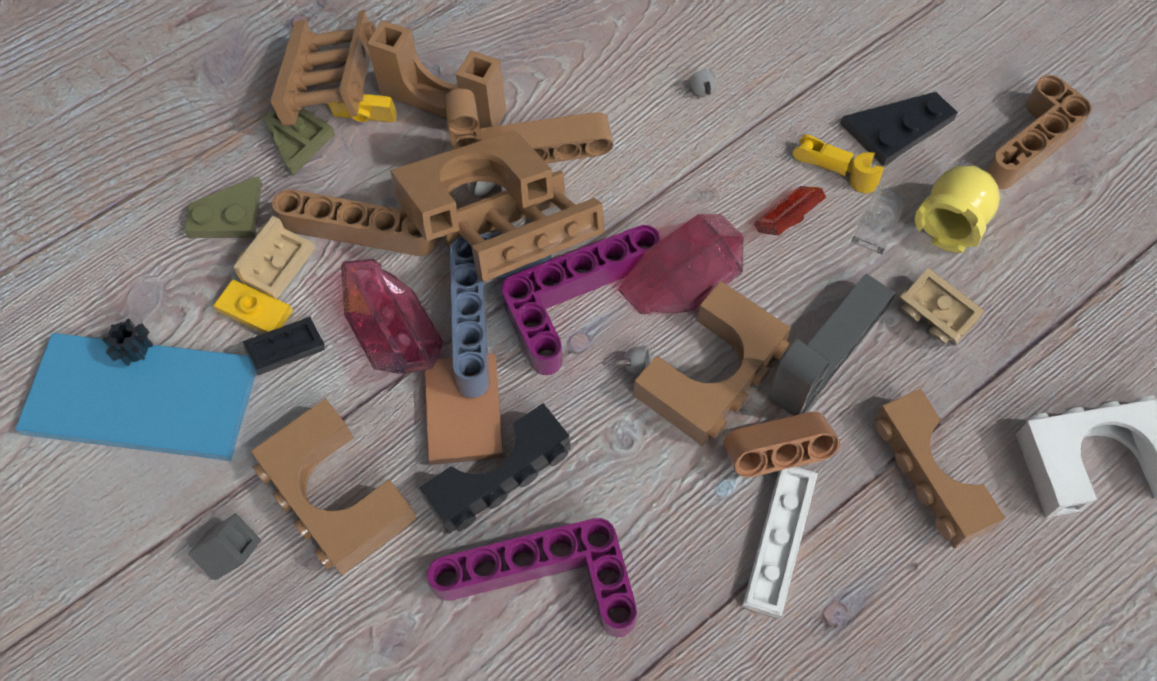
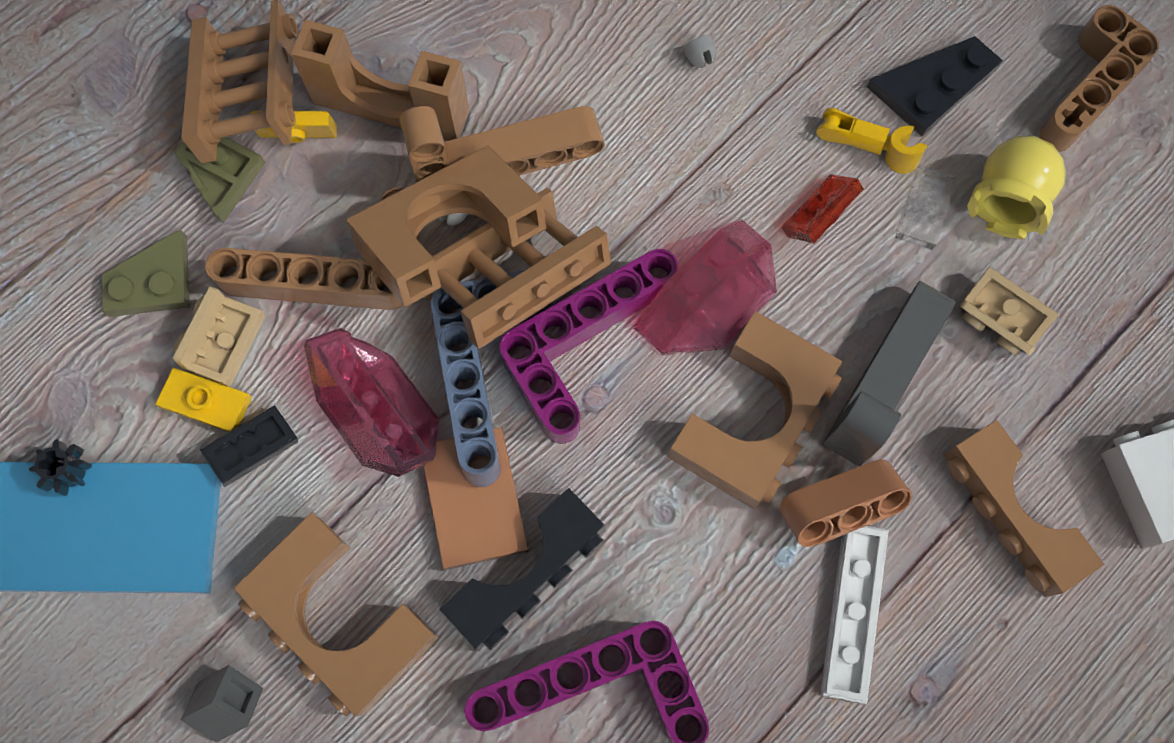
camera: 10 degrees left, 10 degrees up
(639, 359) = (669, 417): light grey hinge -> none

